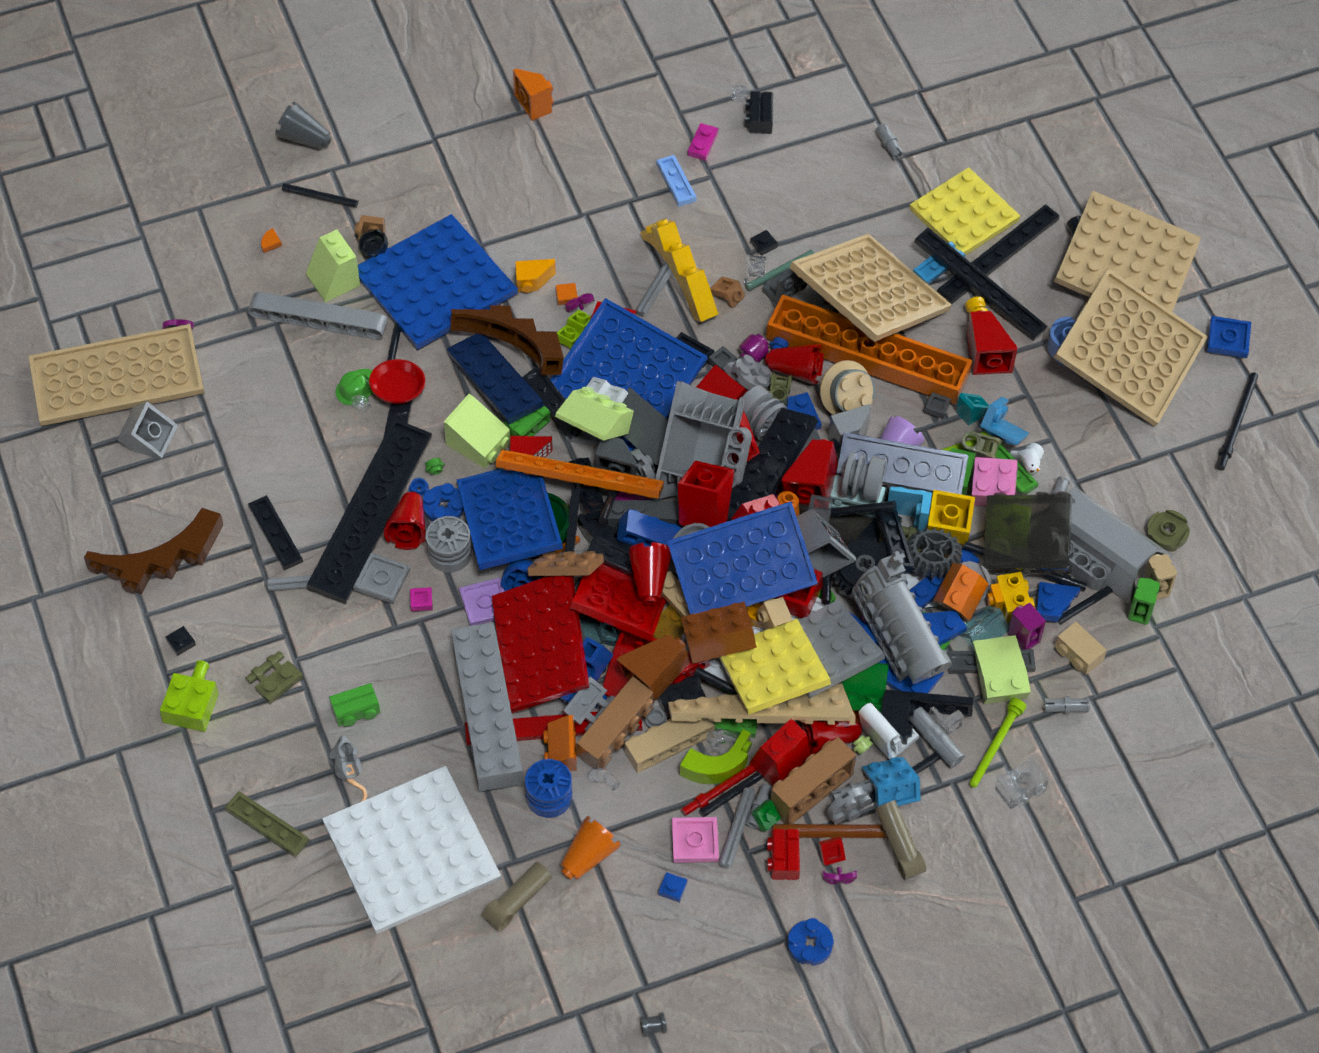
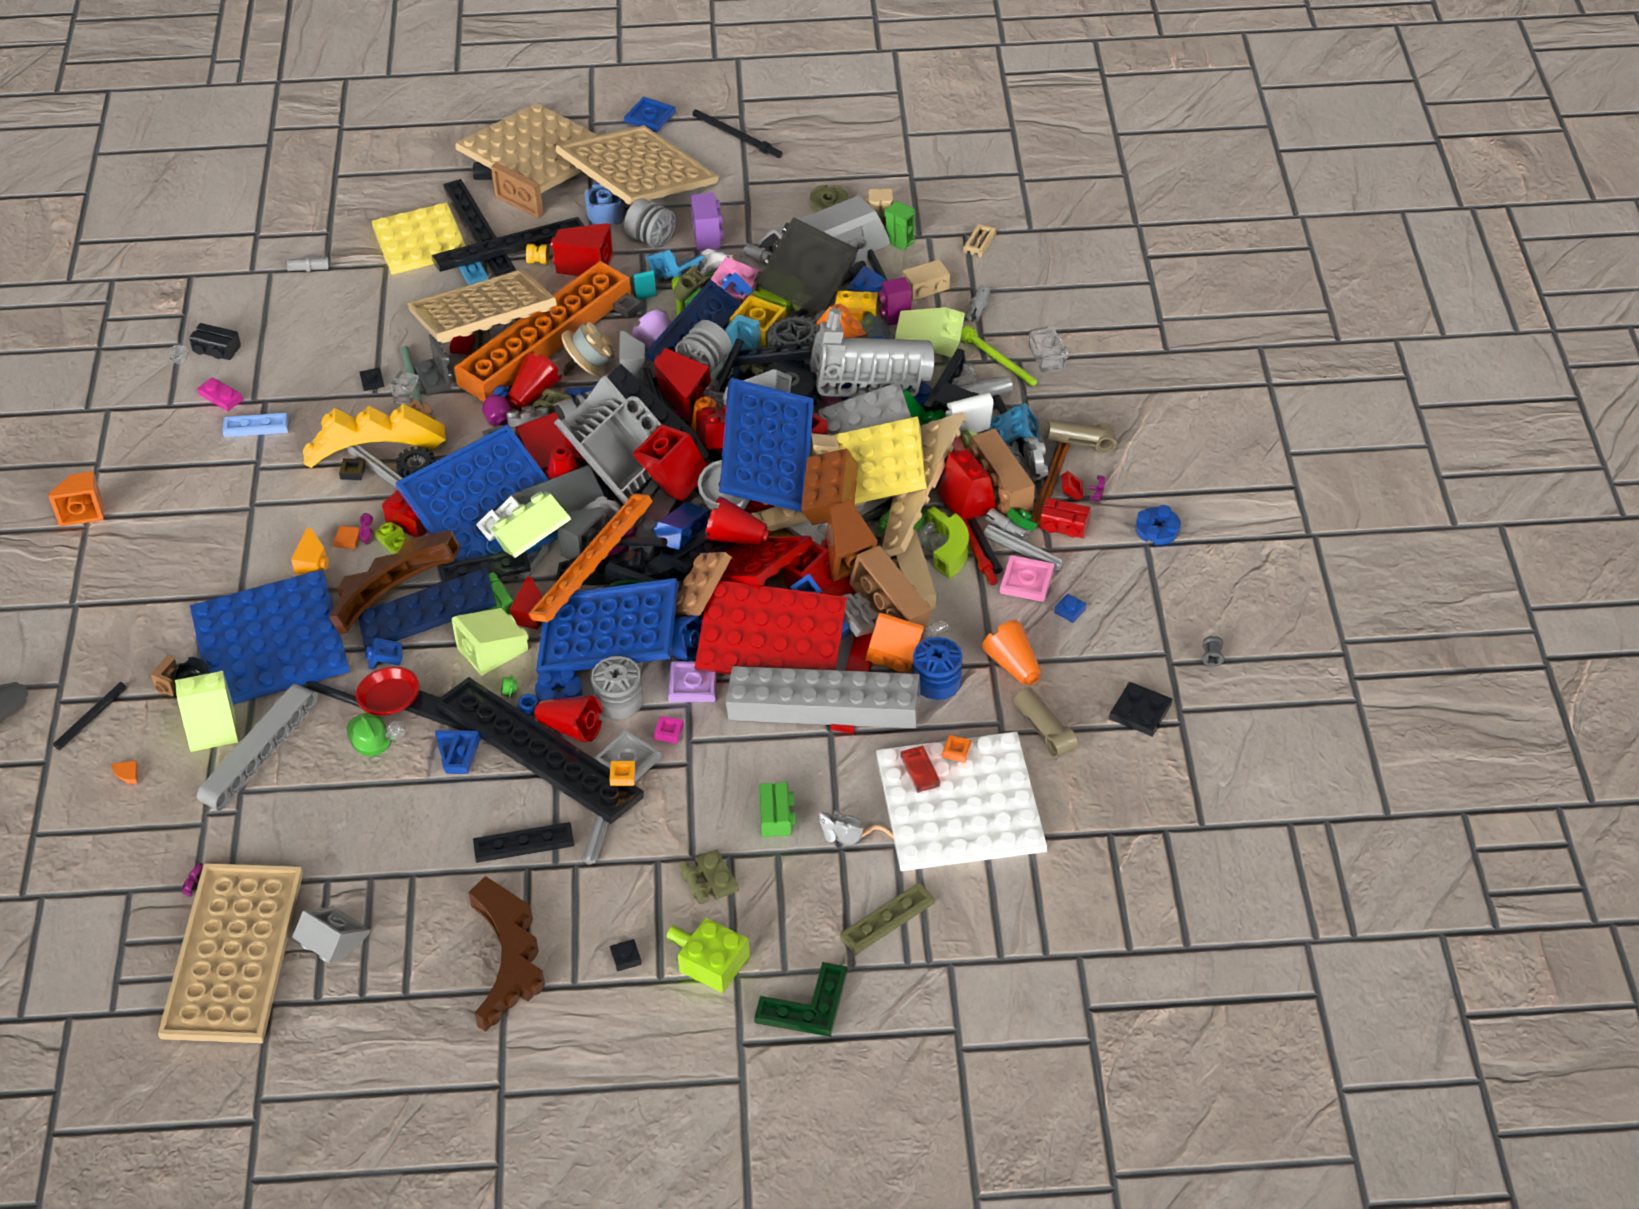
camera: 70 degrees left, 10 degrees down
(154, 799) = (813, 1018): none -> dark green plate
(353, 453) = (457, 749): none -> blue wing
(353, 576) = (622, 773): none -> light orange plate
(426, 804) = (920, 769): none -> clear red tile
(442, 365) = (383, 651): none -> blue bracket
(459, 828) = (957, 748): none -> orange tile
(564, 976) = (1140, 709): none -> black plate
(644, 267) = (352, 469): none -> black plate
(672, 305) = (409, 461): none -> black bush
(977, 481) = (741, 286): none -> blue bracket
(1051, 385) = (649, 223): none -> light grey wheel
(1052, 263) = (517, 190): none -> medium nougat plate
(1074, 430) = (706, 221): none -> medium lavender brick
(1169, 687) = (975, 249): none -> tan tile

